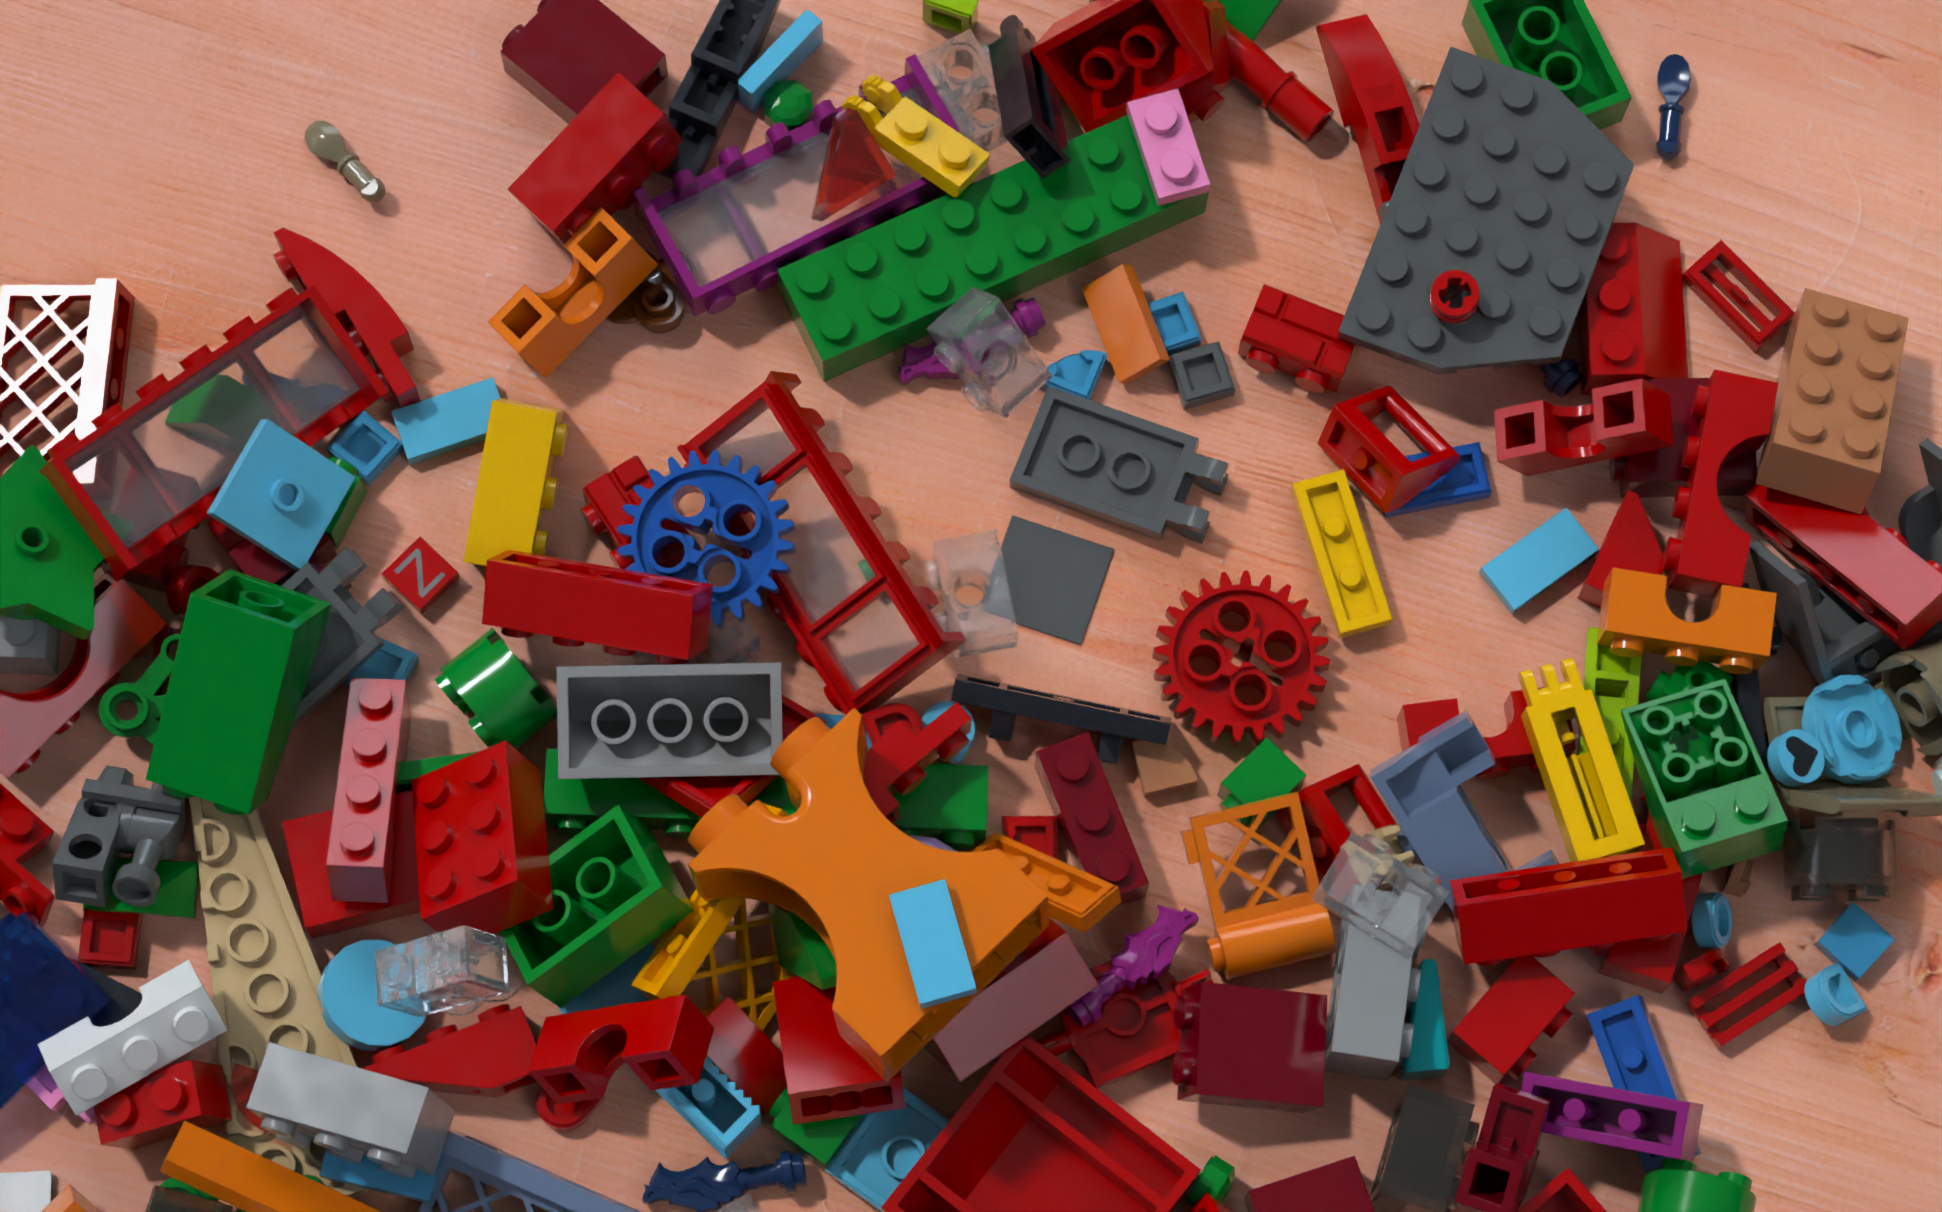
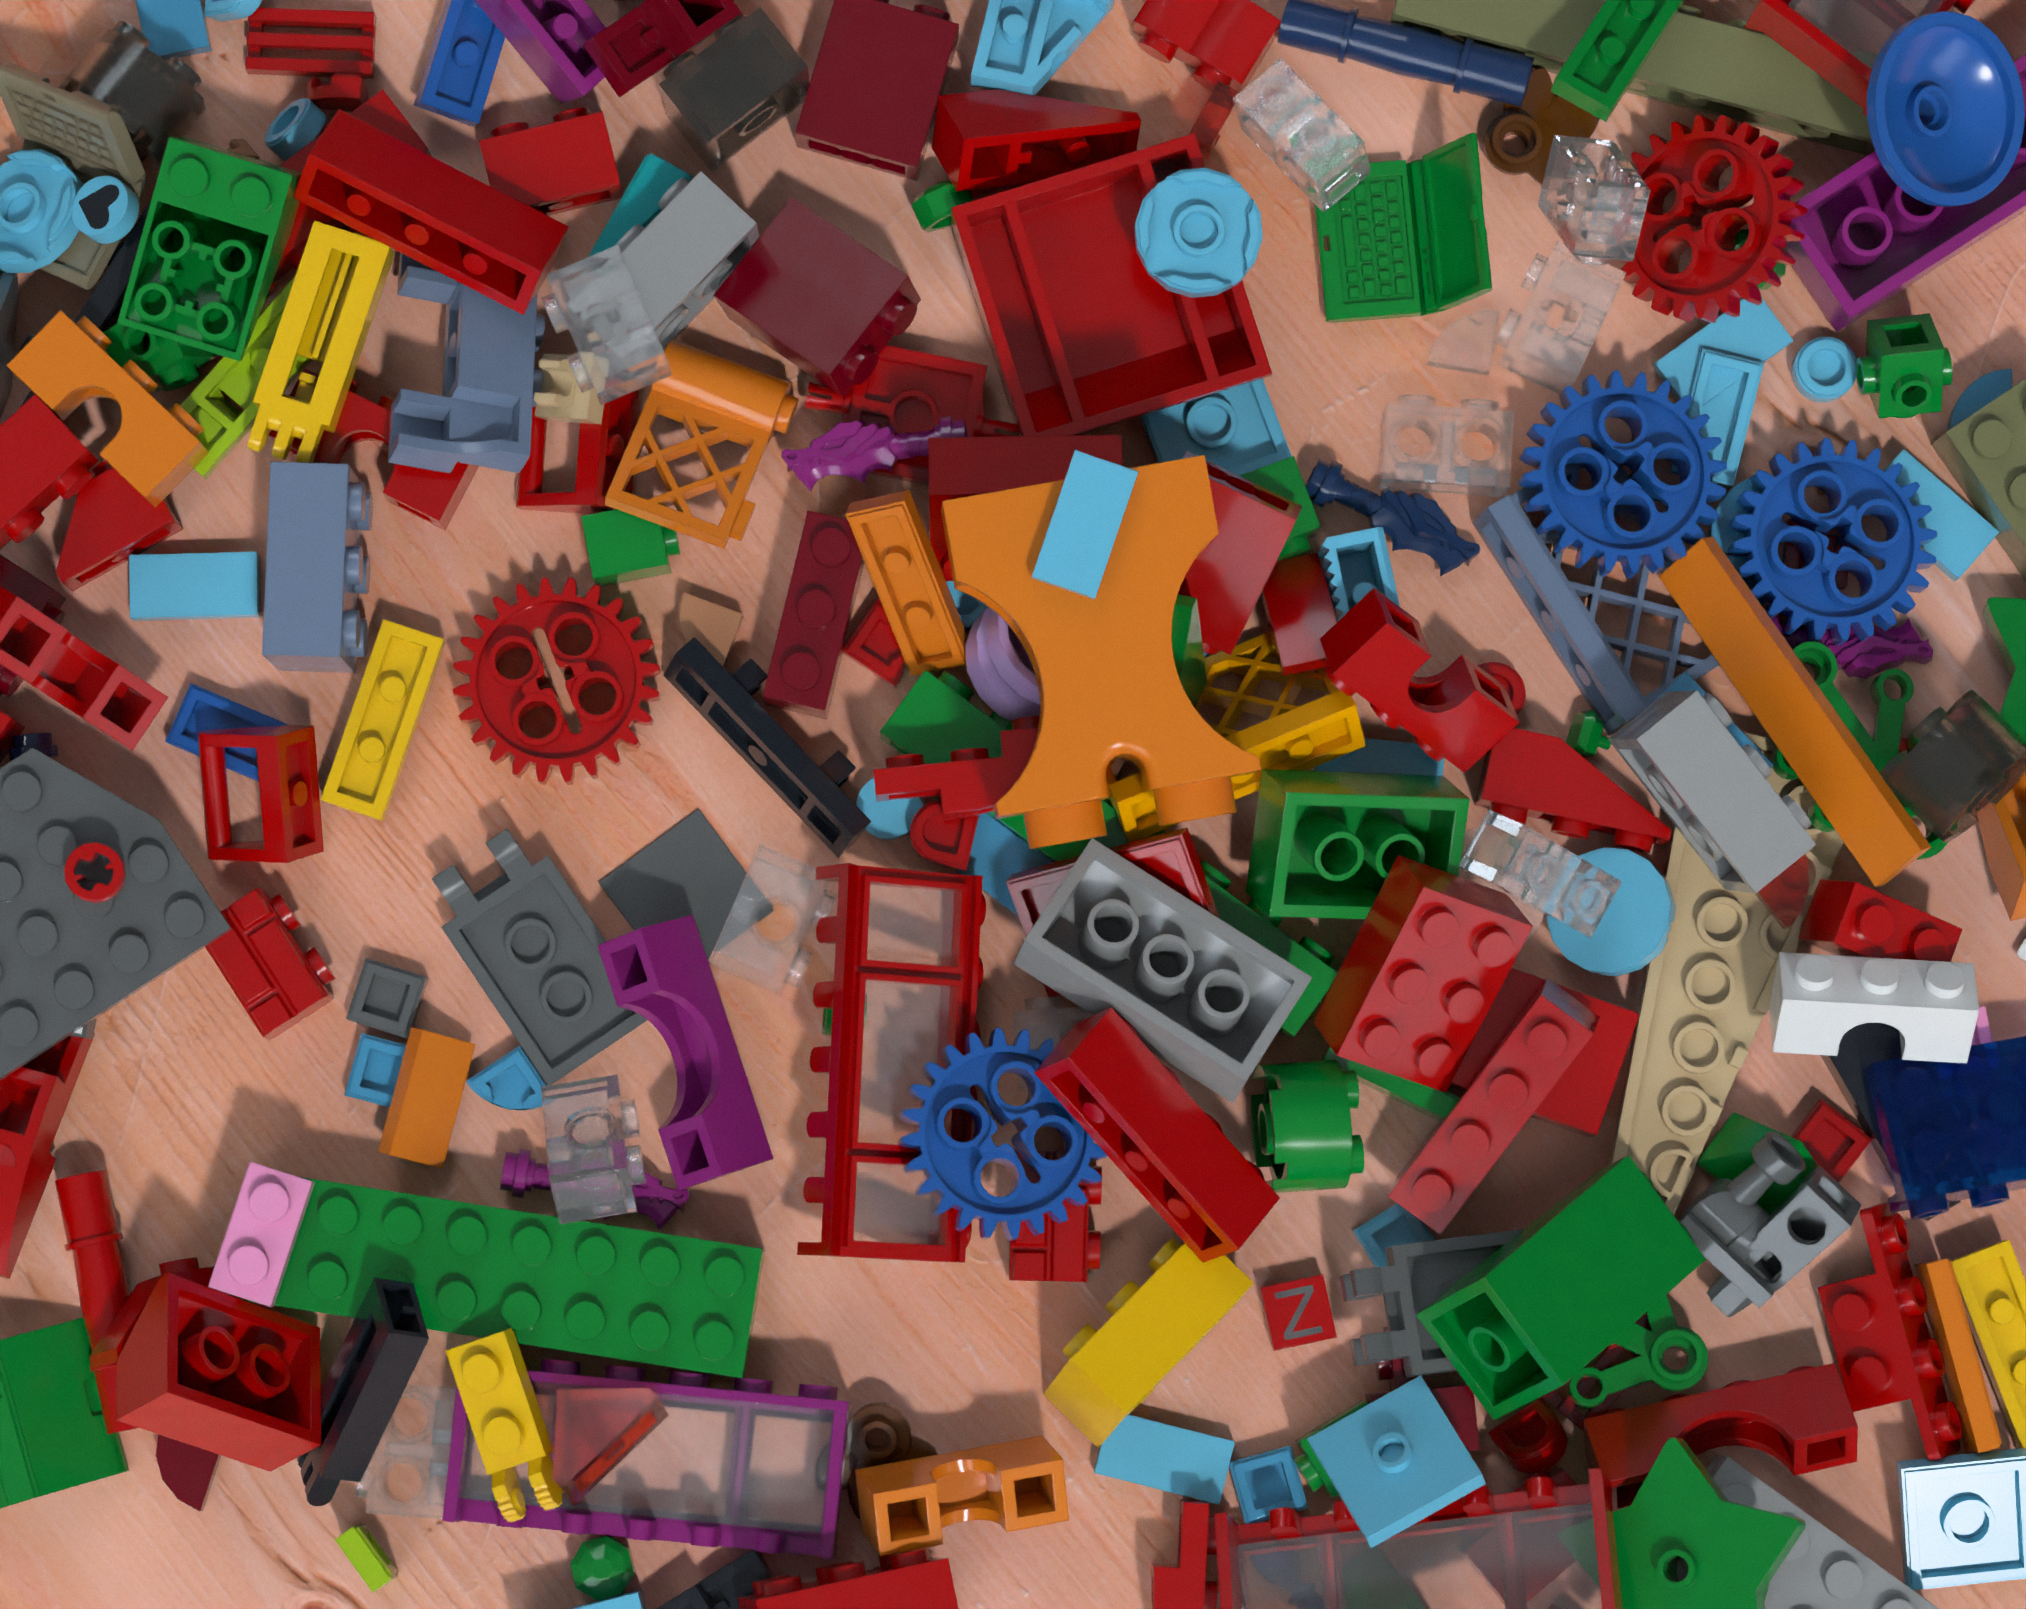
camera: 150 degrees left, 10 degrees up
(475, 1116) = (1586, 733): none -> green rock
(917, 431) = (669, 982): none -> magenta arch
(1463, 614) = (315, 567): none -> sand blue brick

